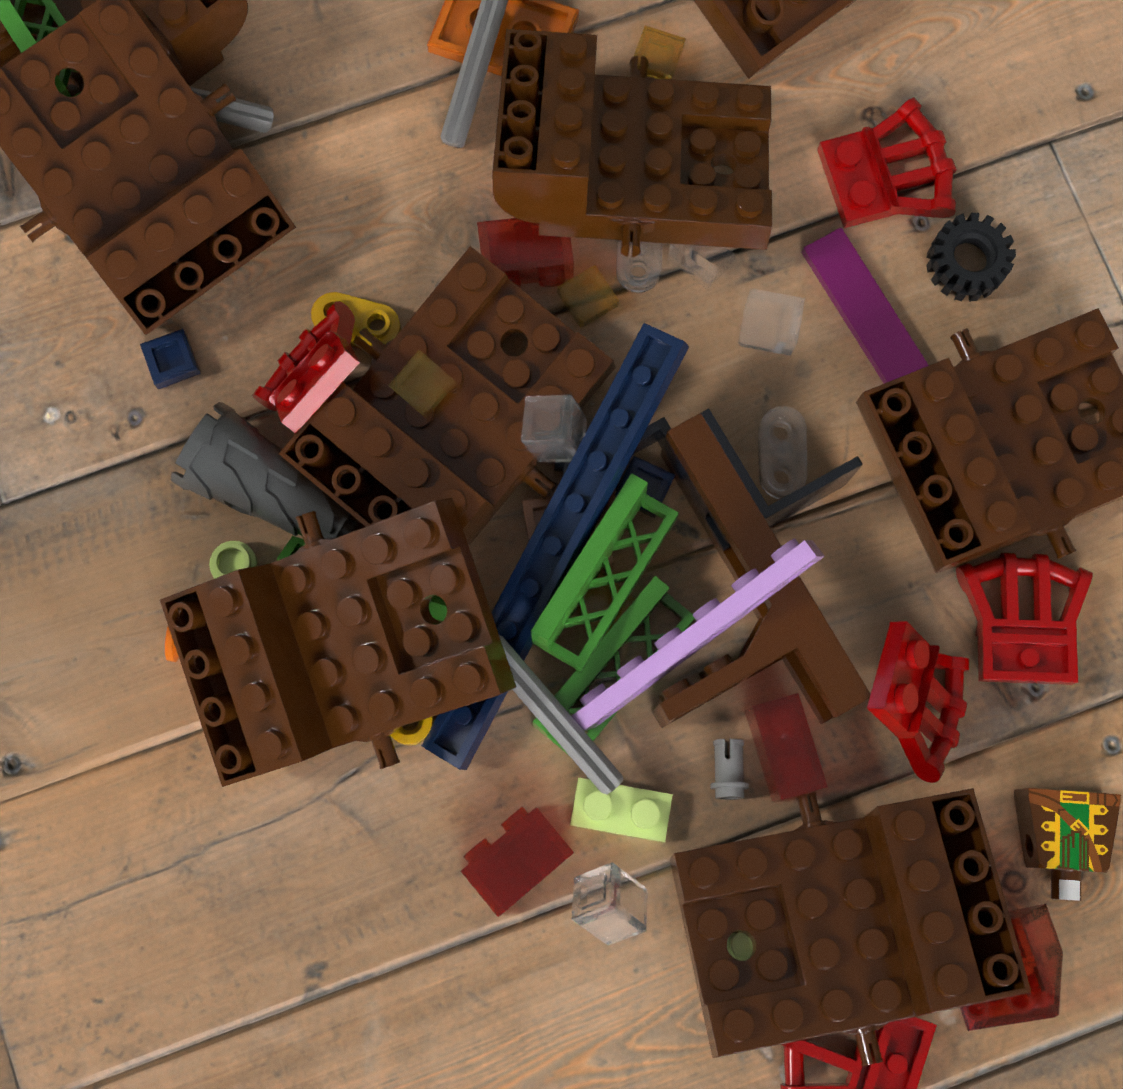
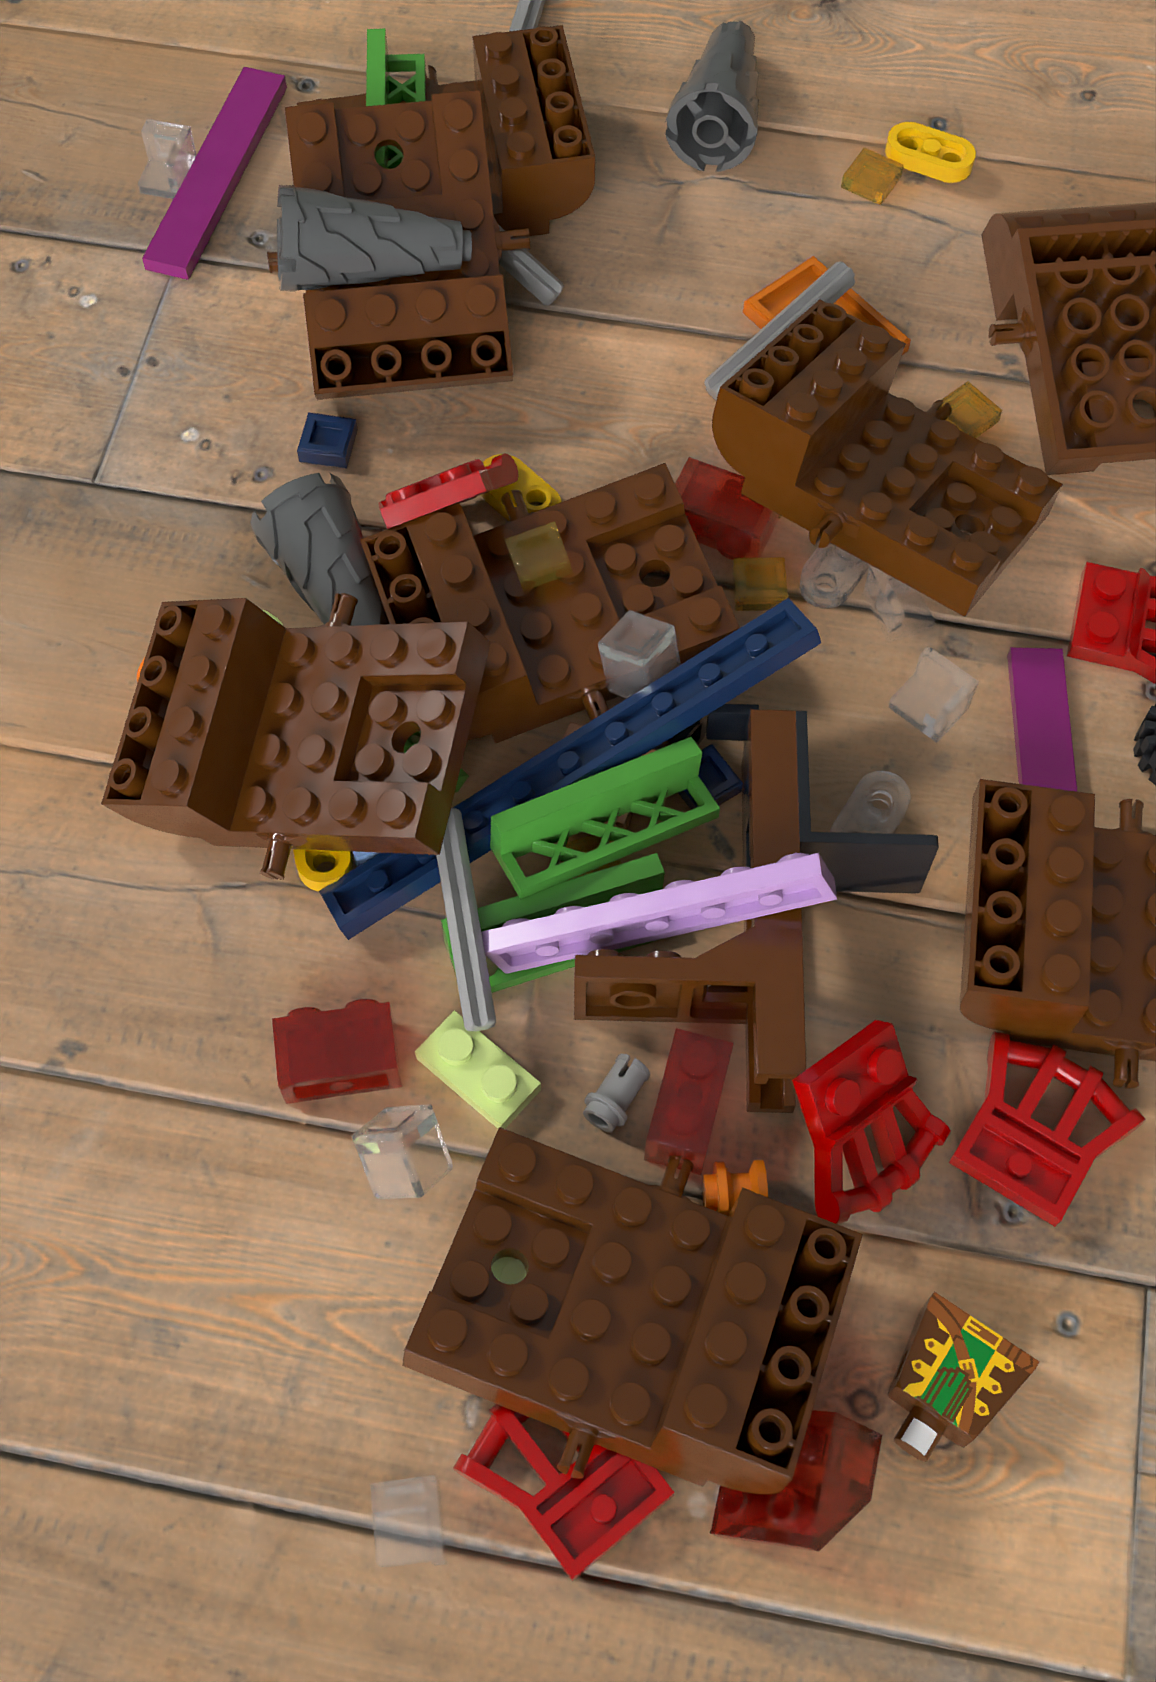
camera: 35 degrees right, 15 degrees down
(101, 186) = (358, 241): none -> dark grey cone
(851, 793) = (723, 1187): none -> orange wheel

